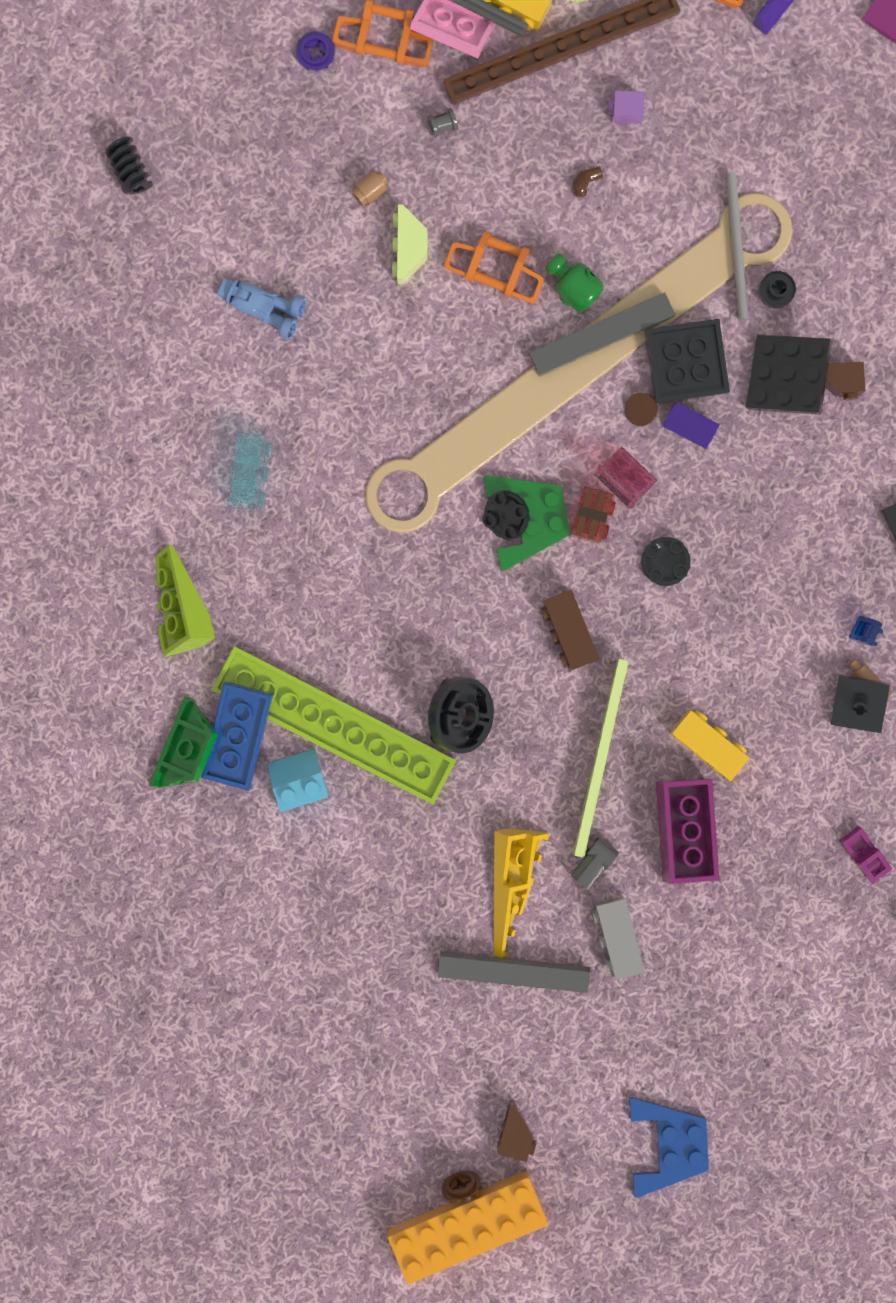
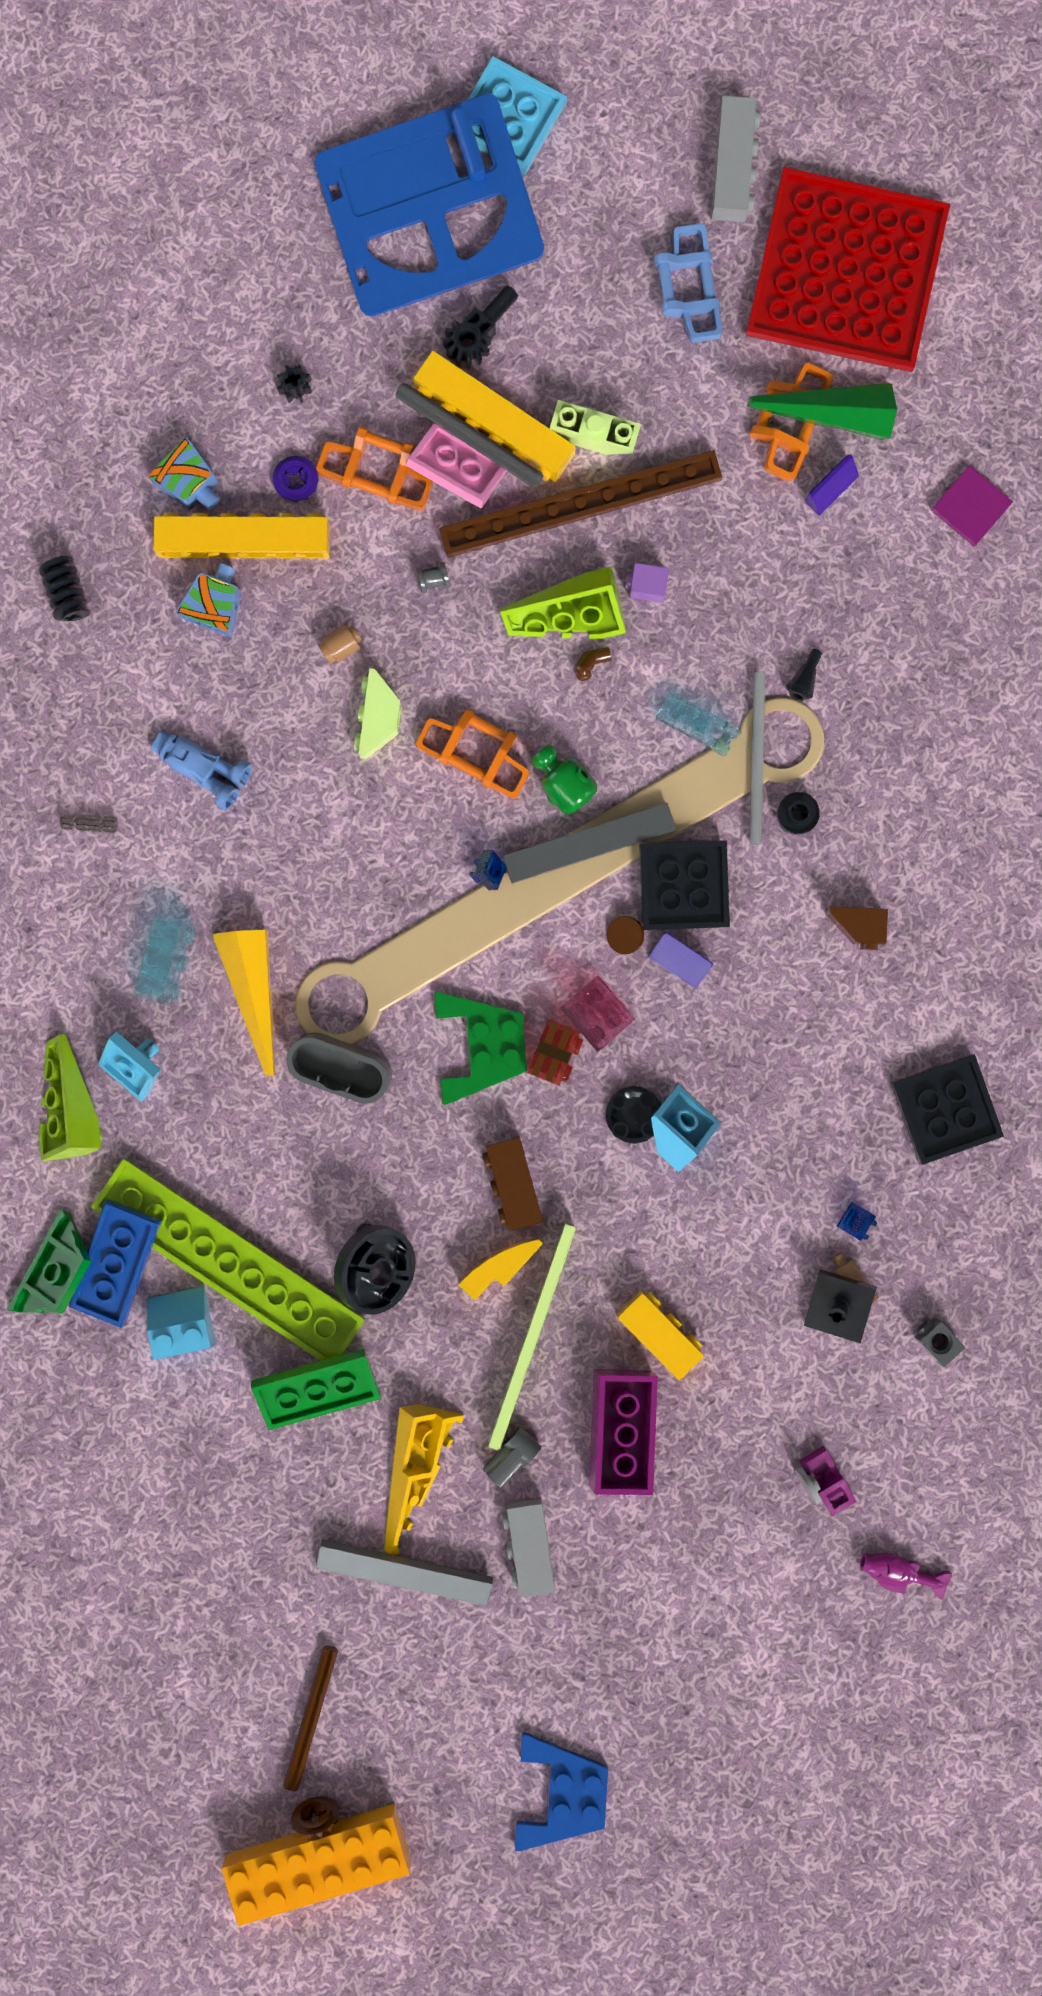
camera: 10 degrees right, 0 degrees up
(170, 364) = (88, 823): none -> clear smoke axle
(222, 59) = (186, 477): none -> torso
(232, 565) = (131, 1065): none -> medium azure tile
(256, 163) = (212, 601): none -> torso
(275, 104) = (241, 536): none -> yellow brick
(321, 471) = (248, 970): none -> yellow wedge
(410, 548) = (339, 1068): none -> dark grey plant
(421, 823) = (316, 1389): none -> green plate
(447, 1105) = (310, 1718): none -> reddish brown axle
(506, 515) = (455, 1041): black dish -> none
(516, 1136) = (385, 1764): reddish brown slope -> none
(518, 366) = (488, 870): none -> clear blue tile
(565, 702) = (499, 1266): none -> yellow slope
(570, 132) = (576, 605): none -> lime wedge
(682, 222) = (697, 723): none -> clear light blue plate
(708, 568) = (682, 1128): none -> medium azure slope
(769, 177) = (803, 683): none -> black cone
(789, 374) = (800, 914): black plate -> none
(851, 859) = (810, 1485): none -> light grey piece

